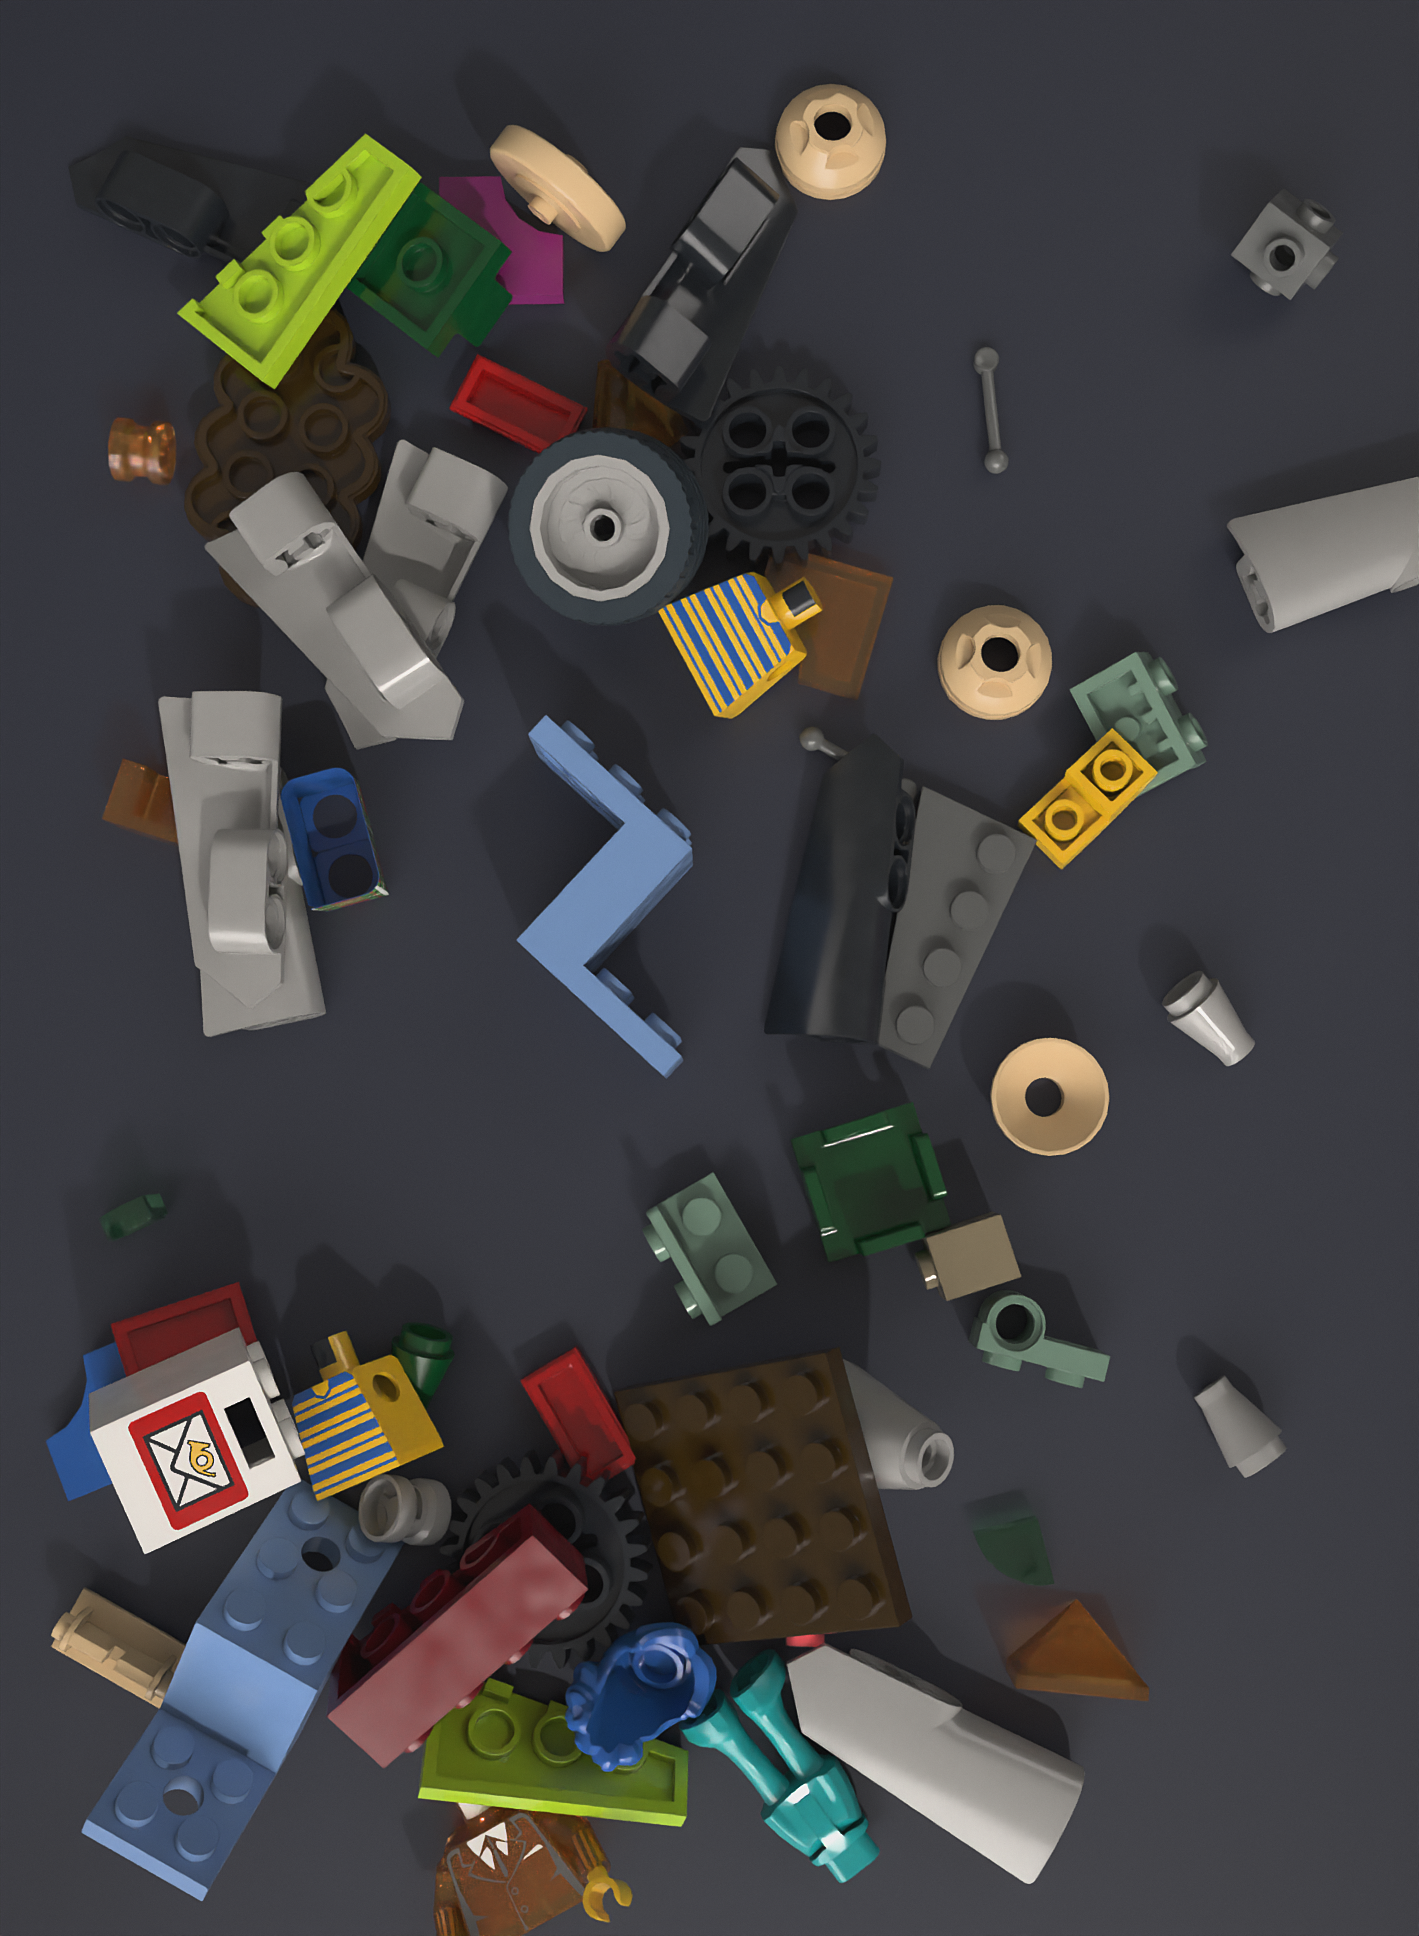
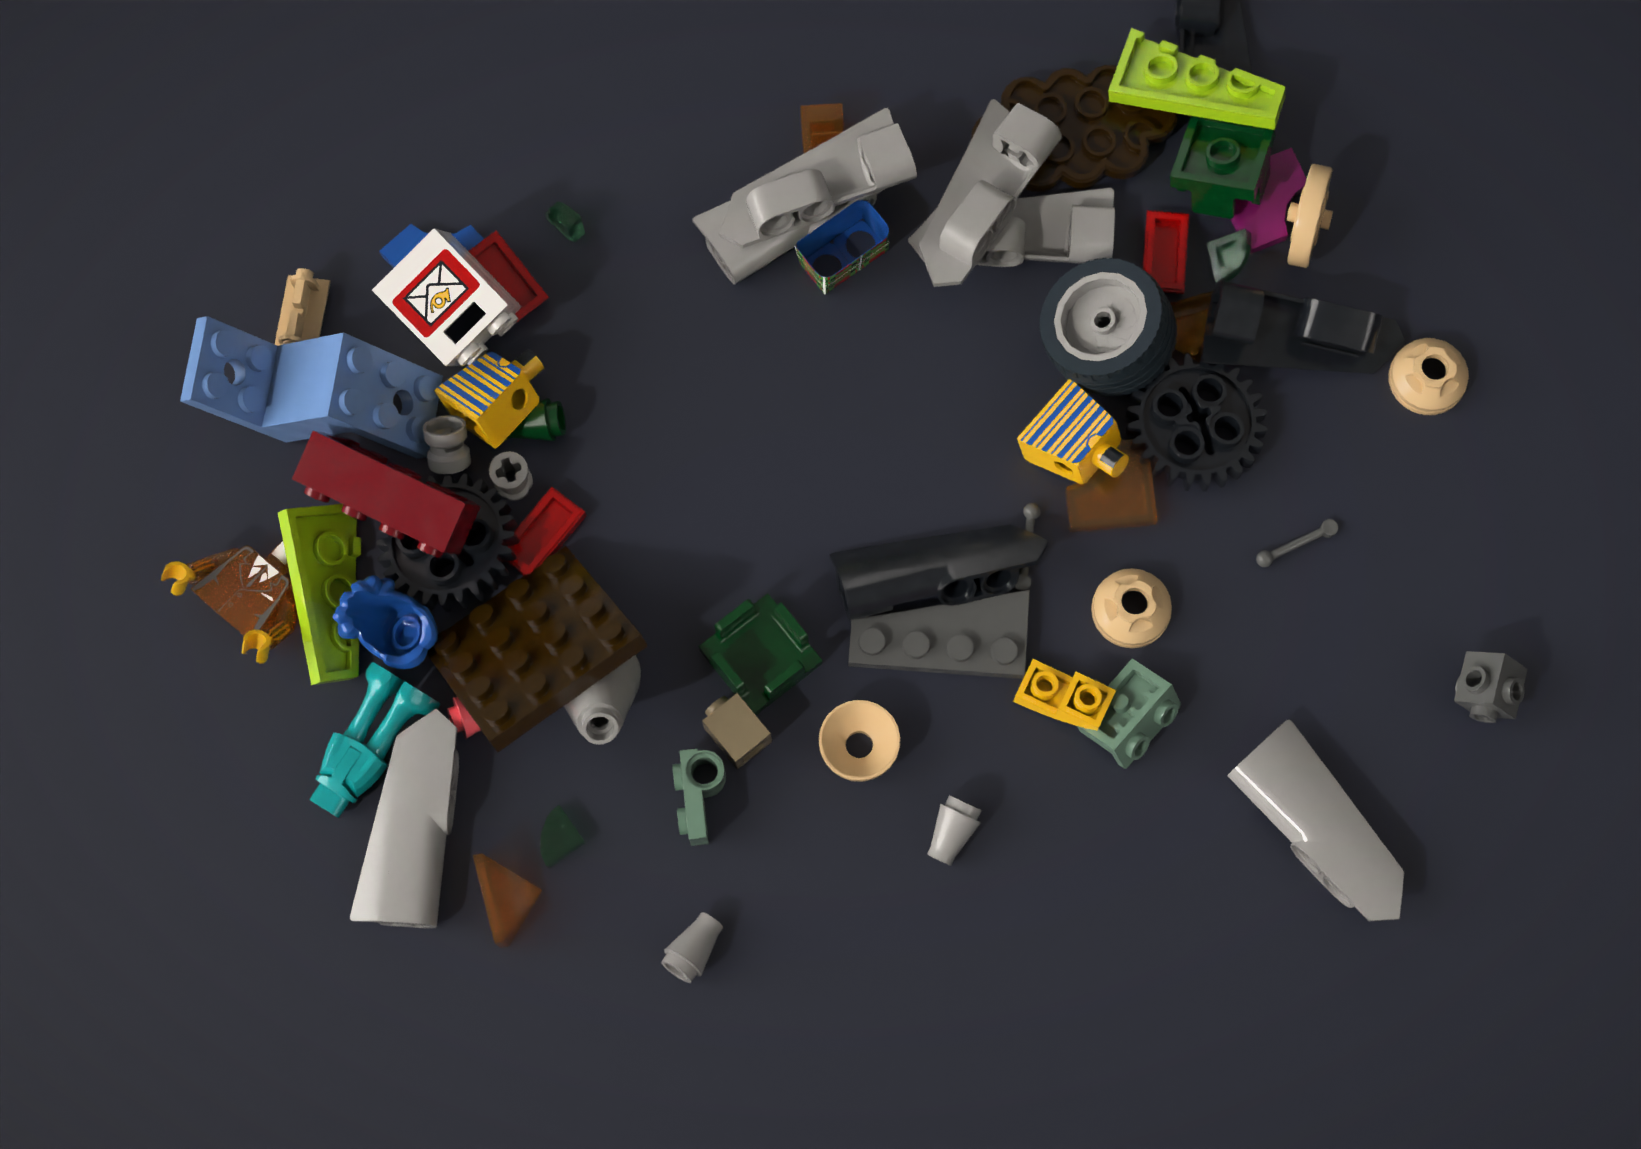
camera: 70 degrees right, 10 degrees down
(142, 451) = (1038, 43): clear orange wheel -> none
(469, 1446) = (508, 462): none -> light grey bush
(558, 325) = (1229, 254): none -> clear green tile
(610, 891) = (872, 418): medium blue bracket -> none
(709, 1249) = (677, 569): sand green bracket -> none

